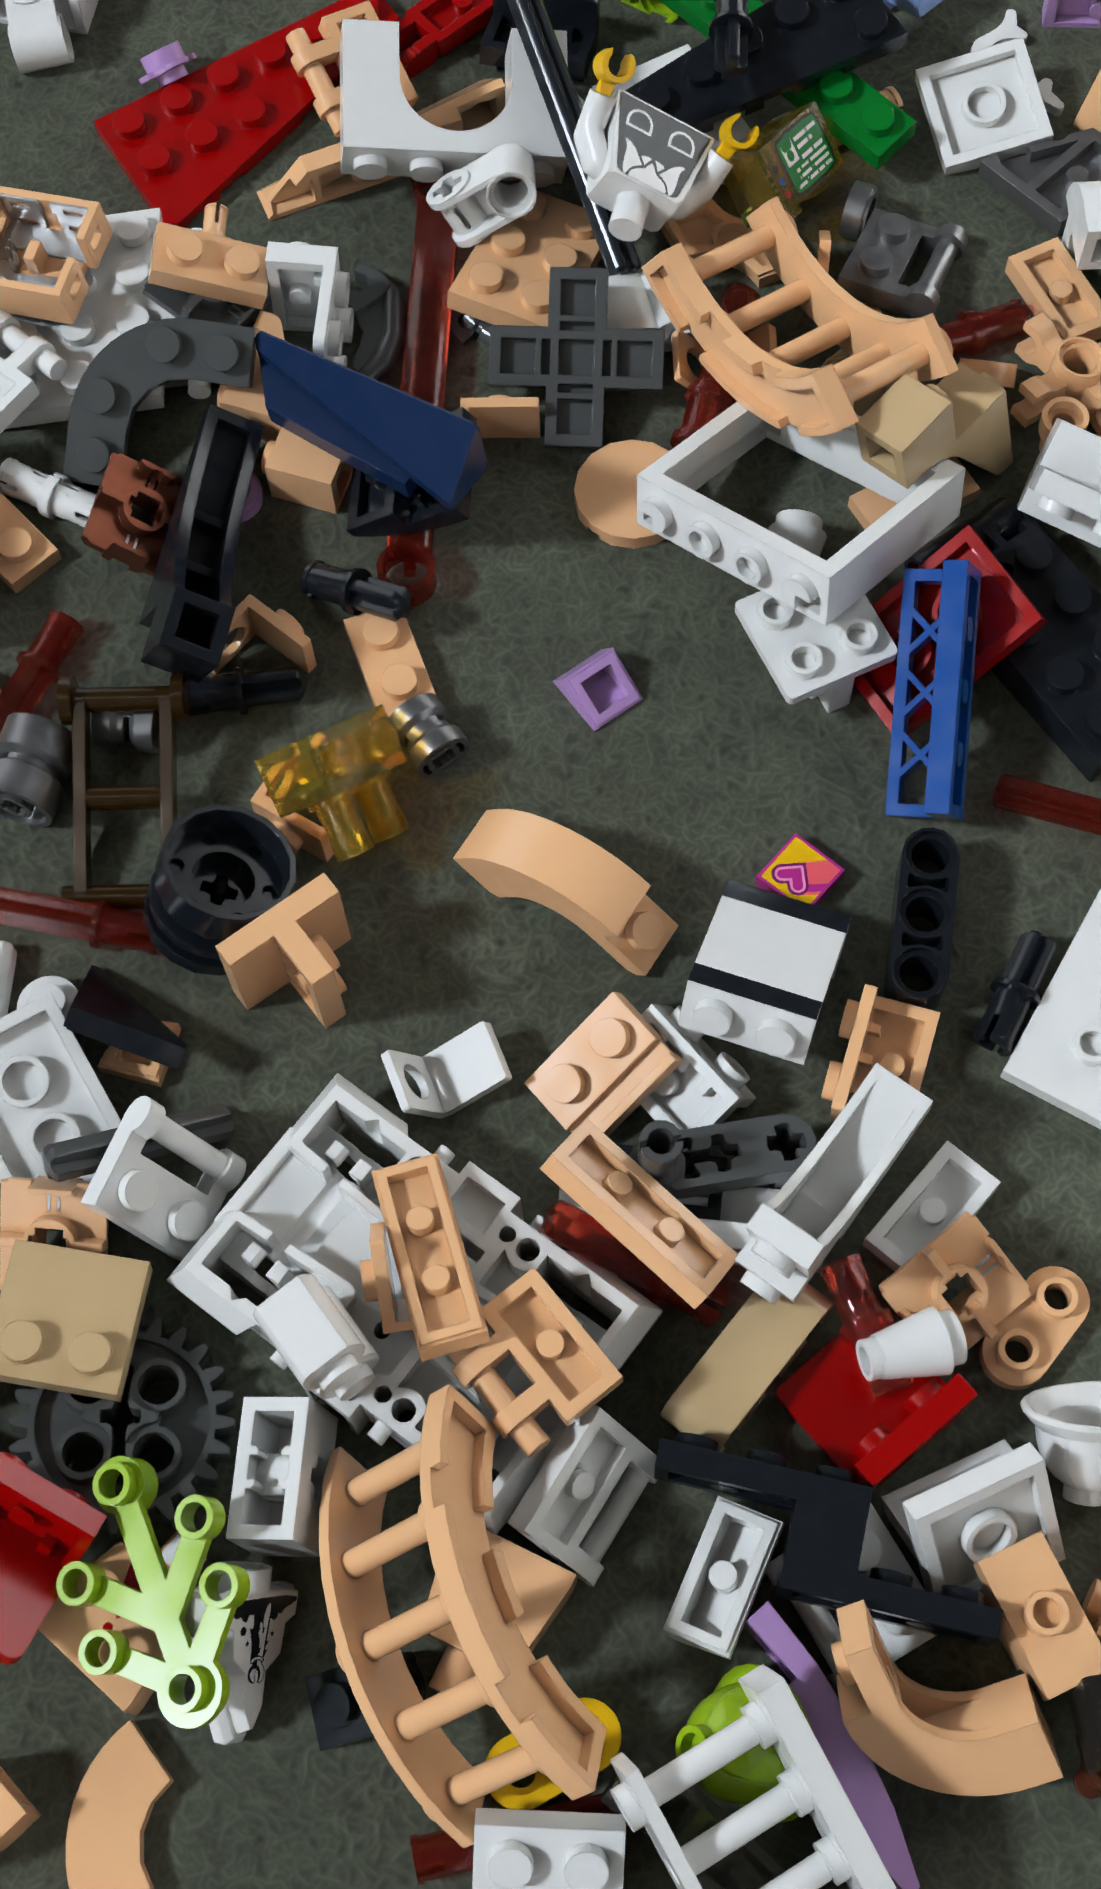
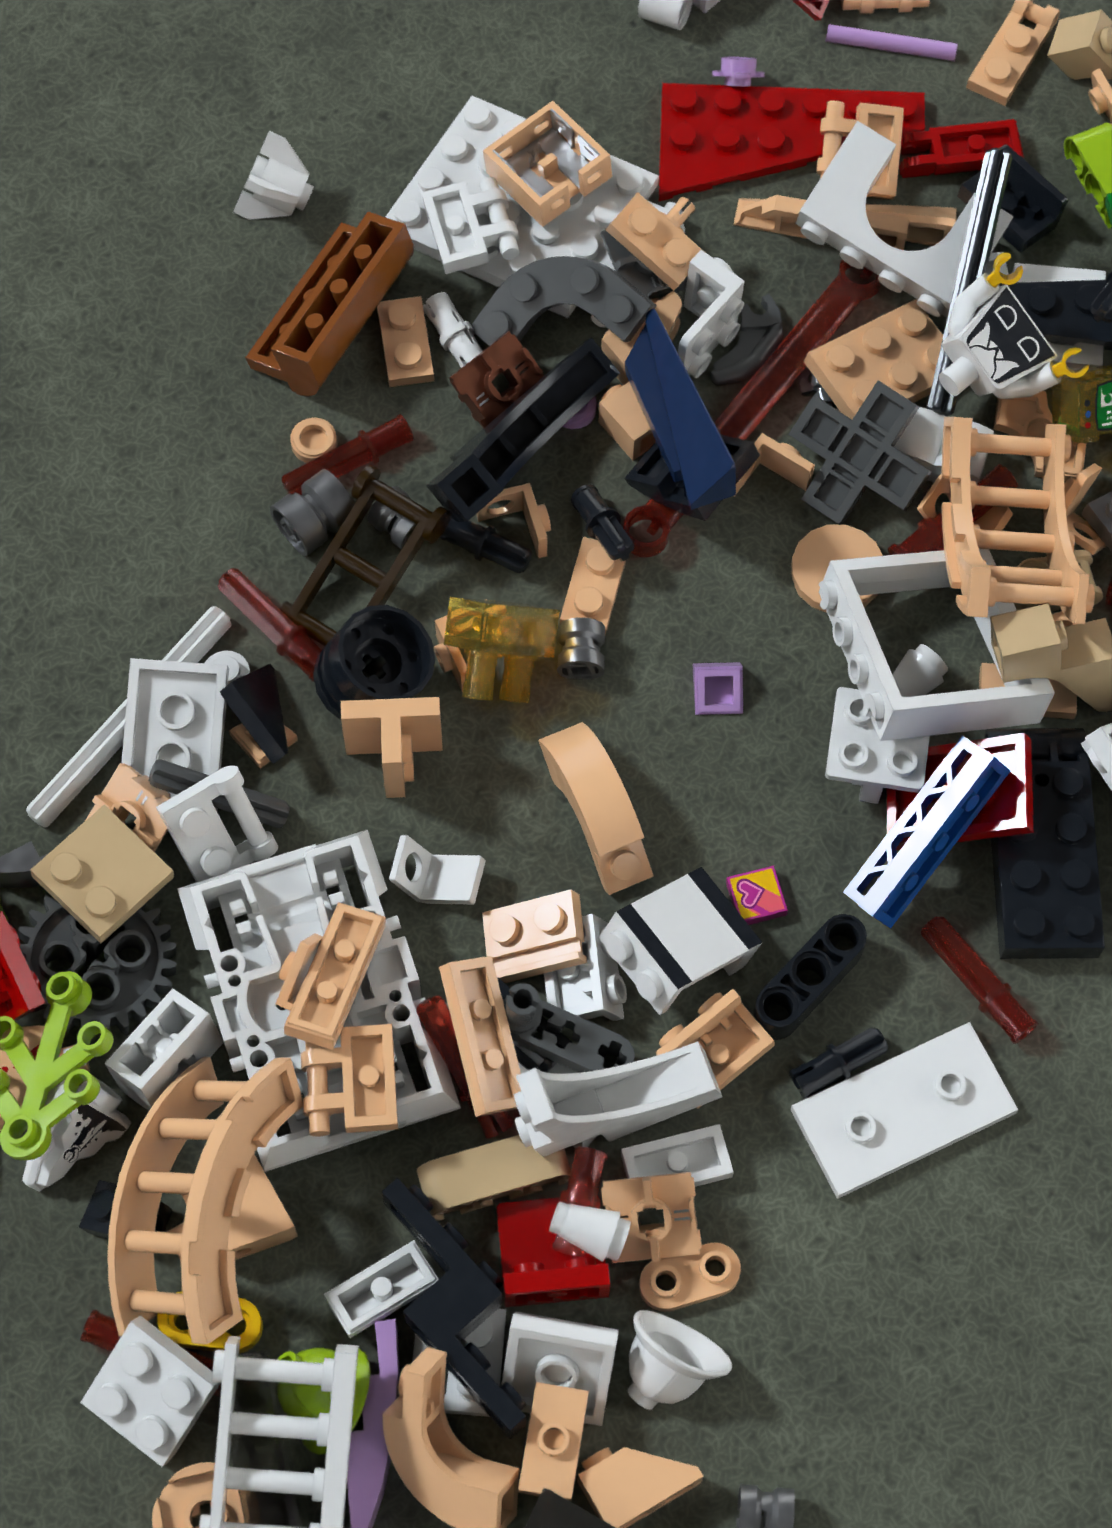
camera: 30 degrees right, 0 degrees up
(318, 1338) = (231, 979): white brick -> none
(477, 201) = (880, 298): white piece -> none
(585, 1493) = (329, 1175): white plate -> none

